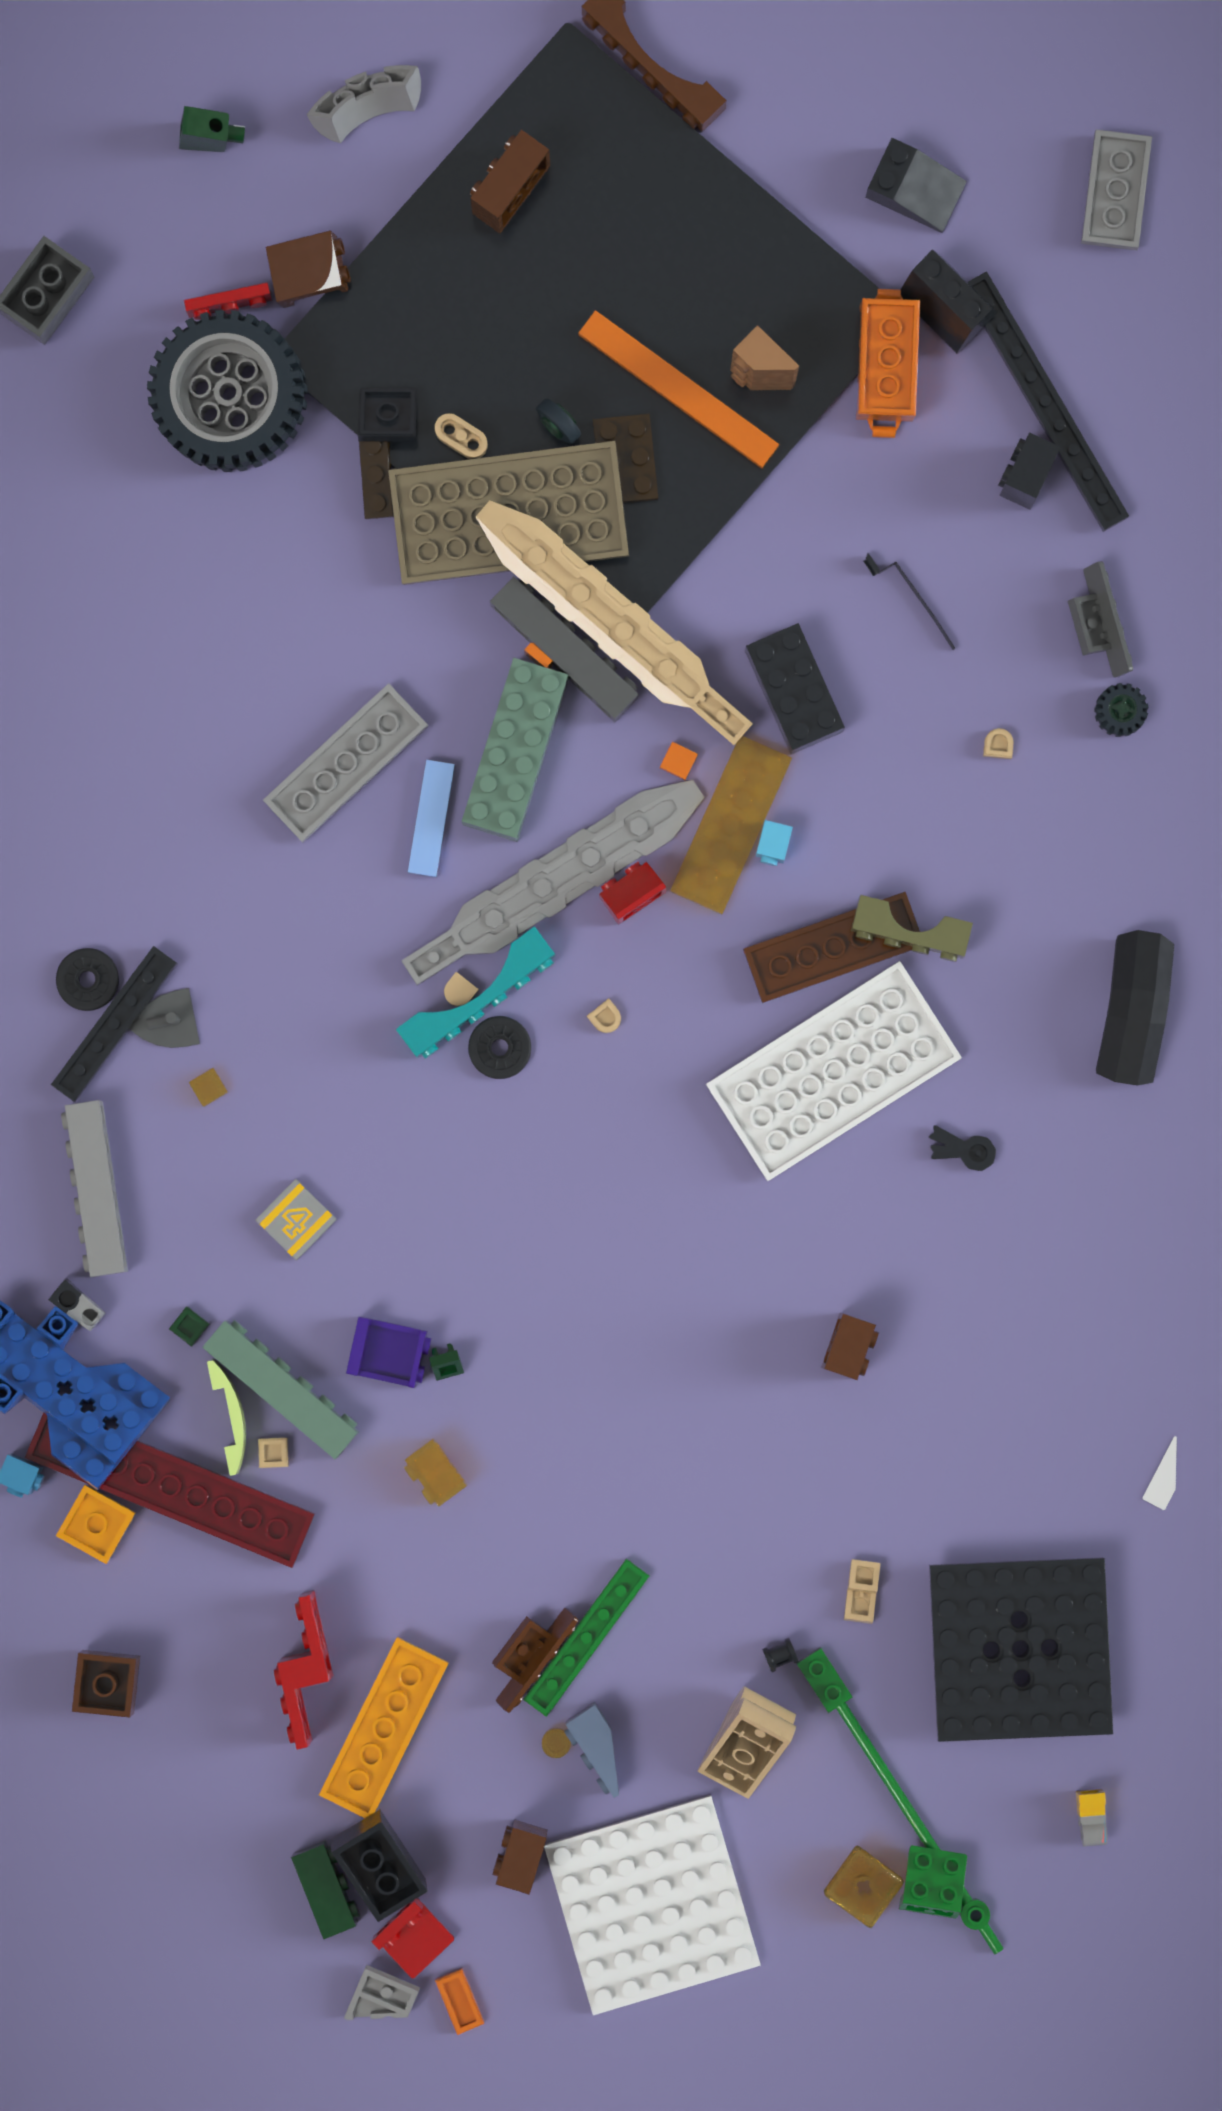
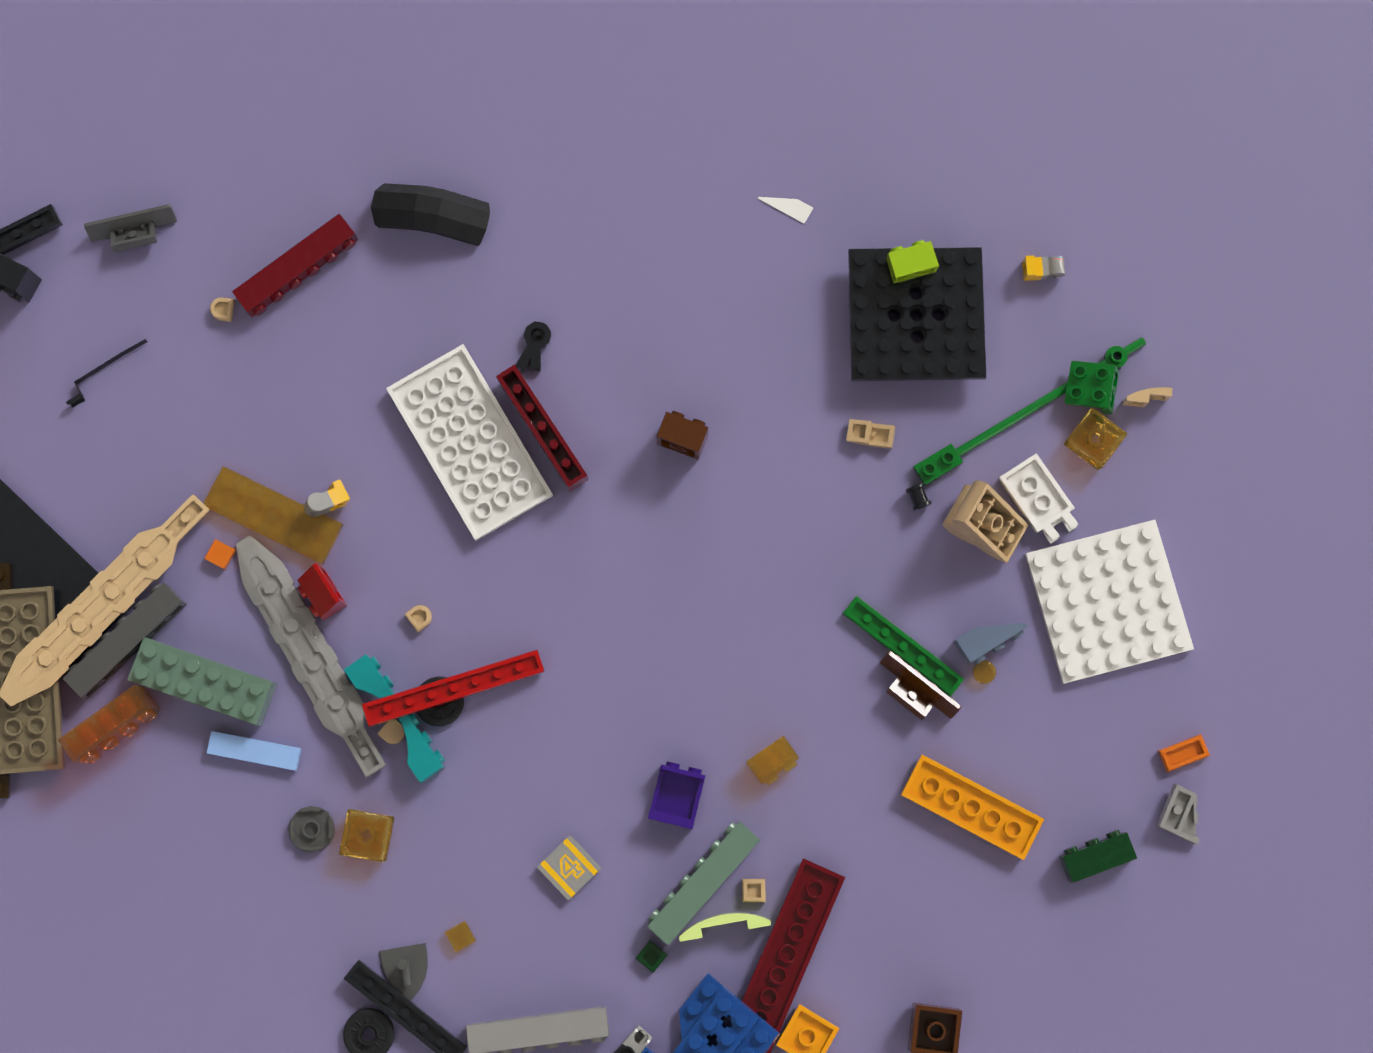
camera: 90 degrees left, 5 degrees down
(303, 1670) = (926, 869): red bracket -> none
(317, 950) = (354, 844): none -> clear yellow brick
(336, 895) = (311, 829): none -> dark grey tile
(345, 763) = (205, 818): light grey plate -> none
(378, 1865) = (1079, 812): black brick -> none
(413, 1938) = (1134, 788): red bracket -> none
(446, 1364) = (687, 749): dark green tile -> none
(456, 637) = (109, 725): none -> clear orange brick
(514, 1065) = (452, 688): none -> red plate
(521, 1857) = (1072, 700): reddish brown brick -> none
(538, 656) = (127, 662): orange tile -> none
(745, 885) = (325, 502): none -> leg
(773, 843) = (288, 481): medium azure brick -> none
(785, 1812) = (1039, 497): none -> white tile
(794, 688) = (168, 461): black brick -> none
(821, 952) = (373, 439): reddish brown plate -> none
(853, 1164) = (542, 428): none -> dark red brick
(875, 920) = (352, 404): olive arch -> none
(921, 1949) = (1142, 397): none -> tan slope
(1058, 835) = (295, 265): none -> dark red brick
(1087, 1642) = (912, 261): none -> lime brick
(1123, 699) = (197, 209): black wheel -> none

